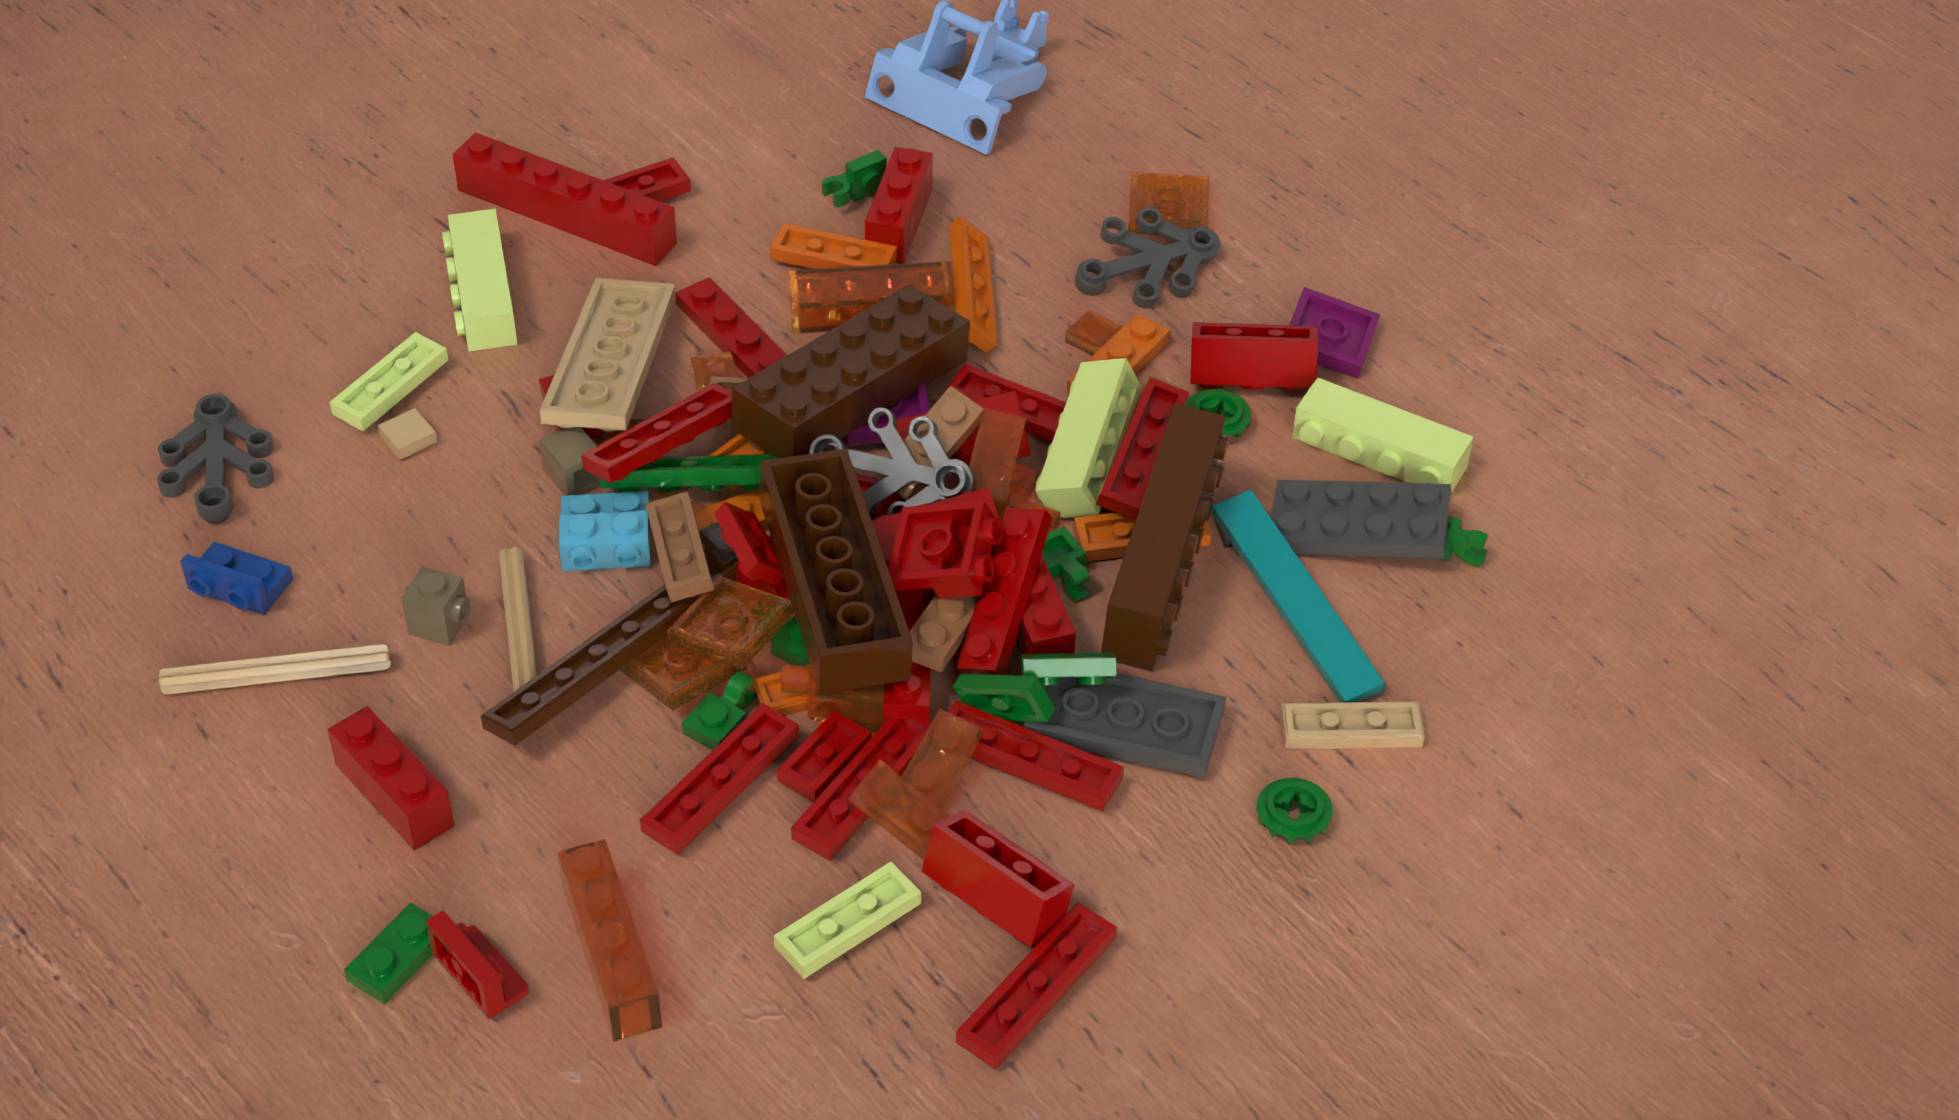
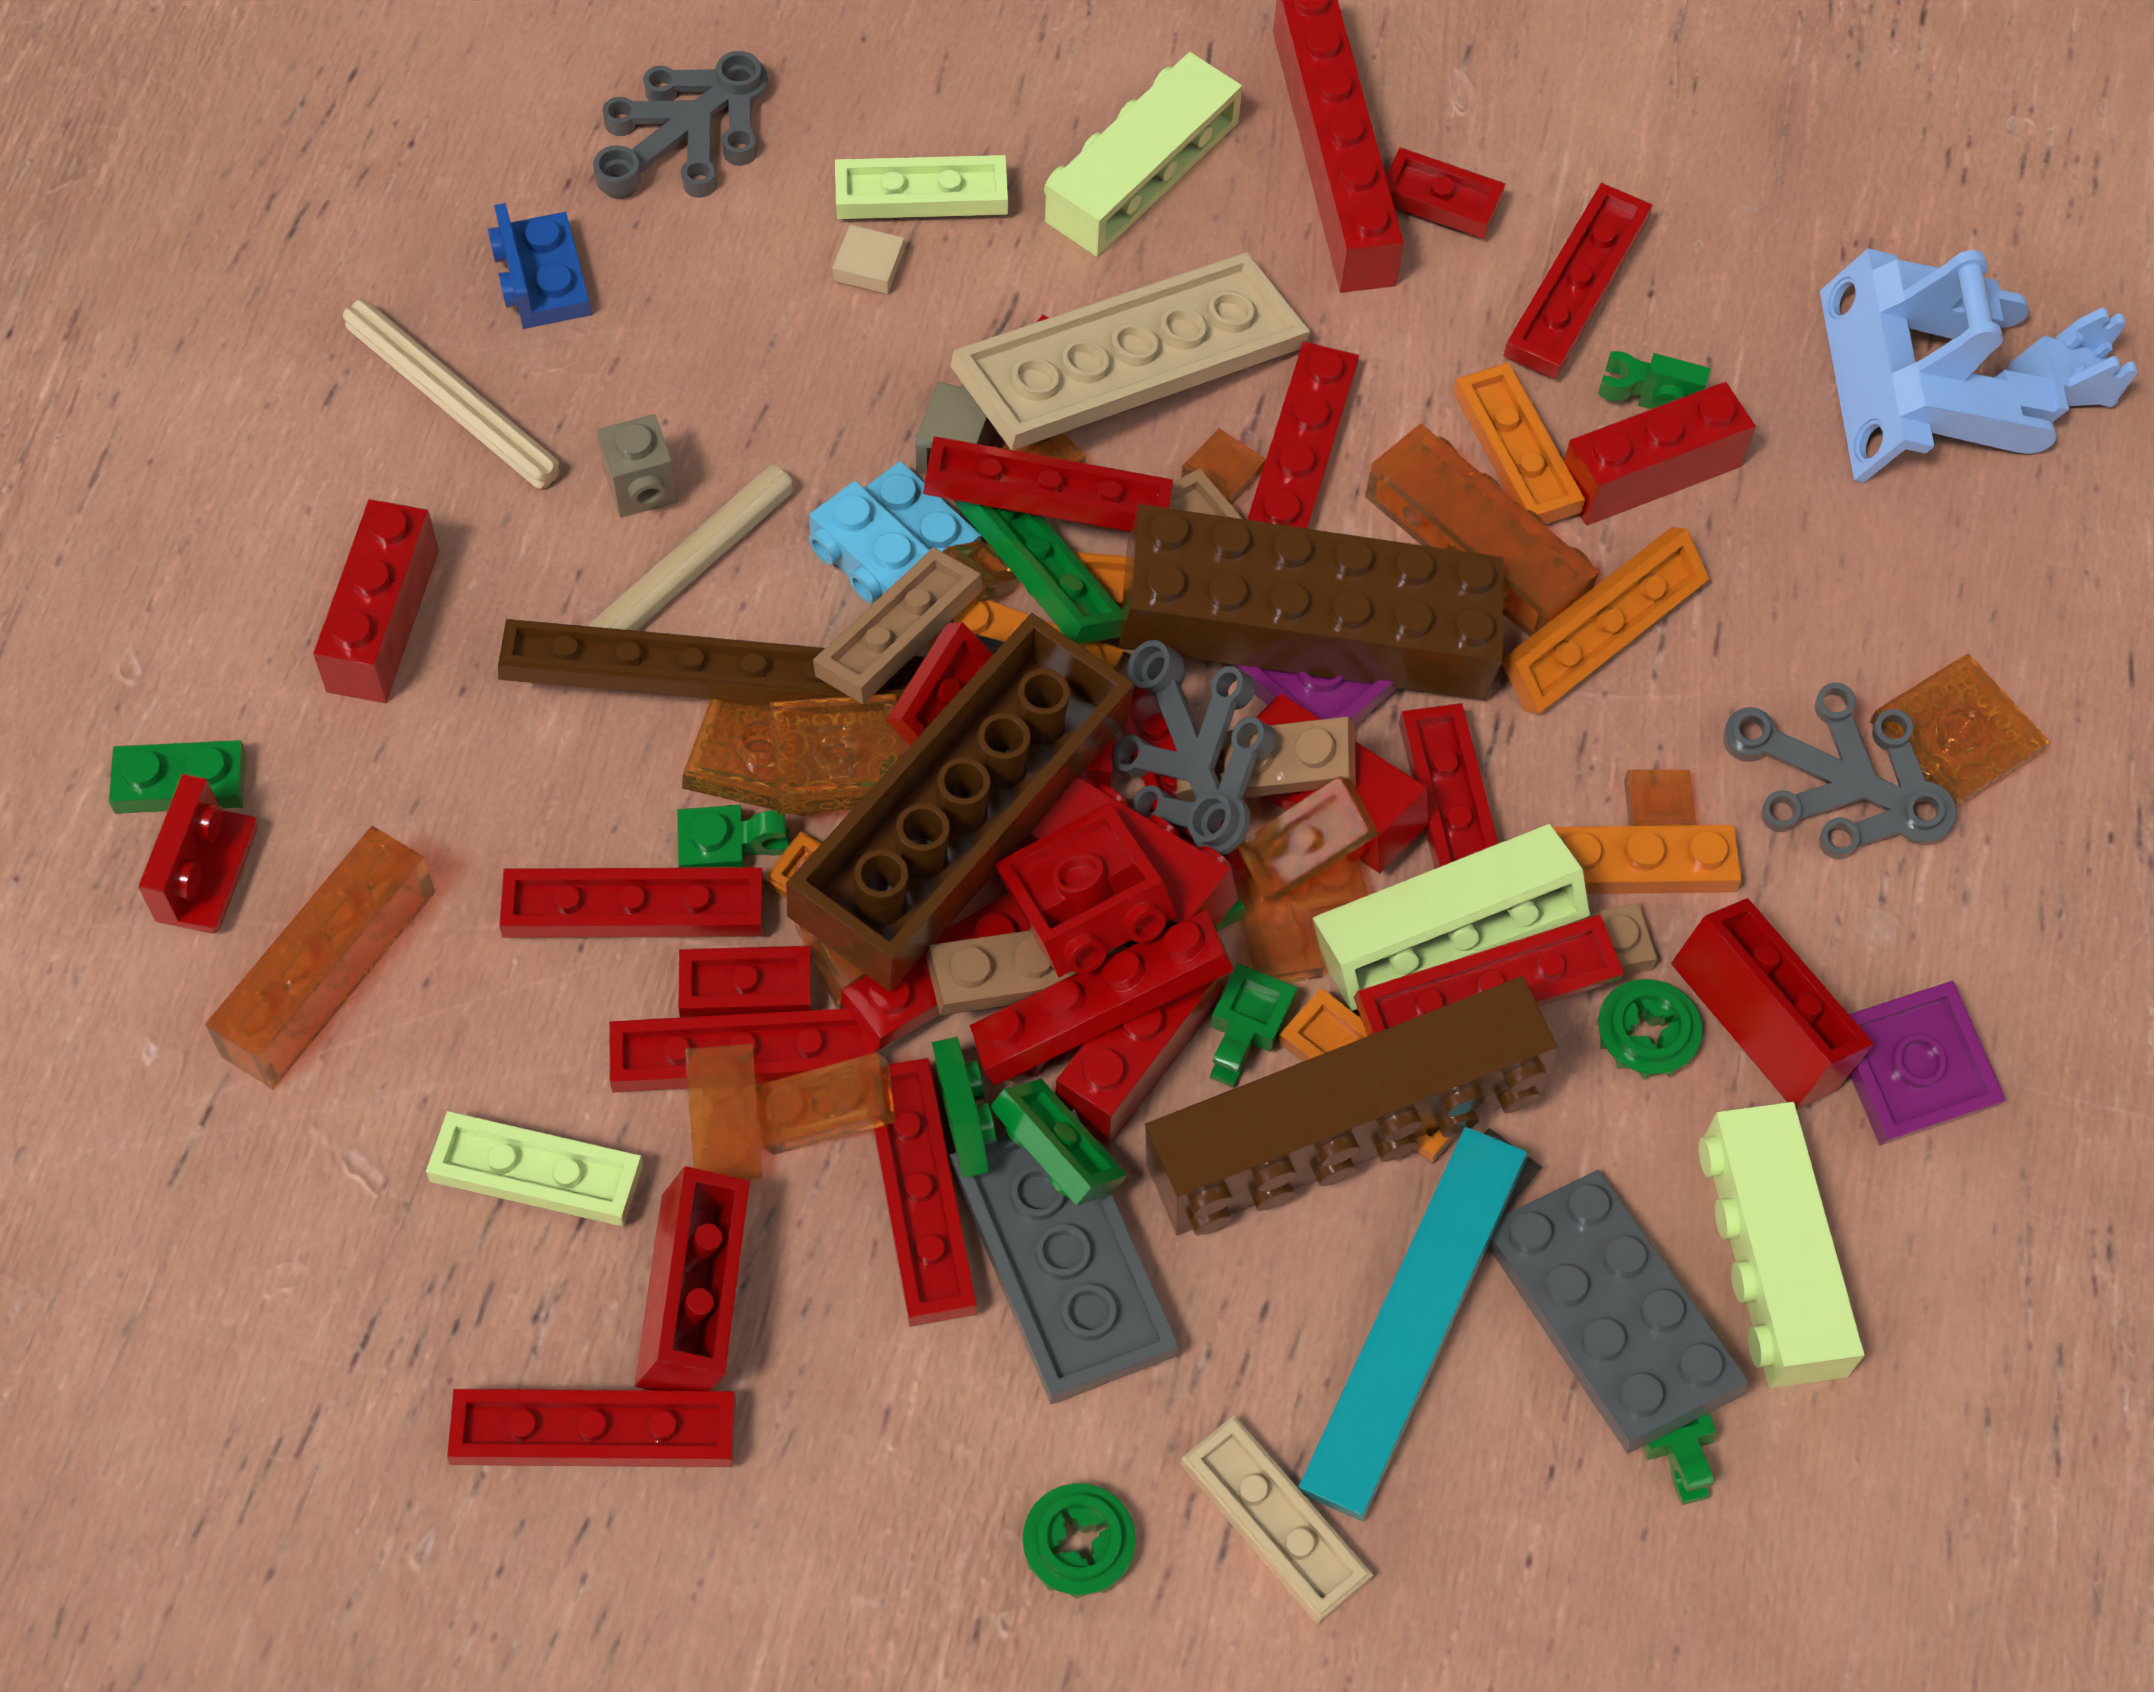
camera: 50 degrees right, 15 degrees up
(761, 171) = (1577, 281): none -> red plate

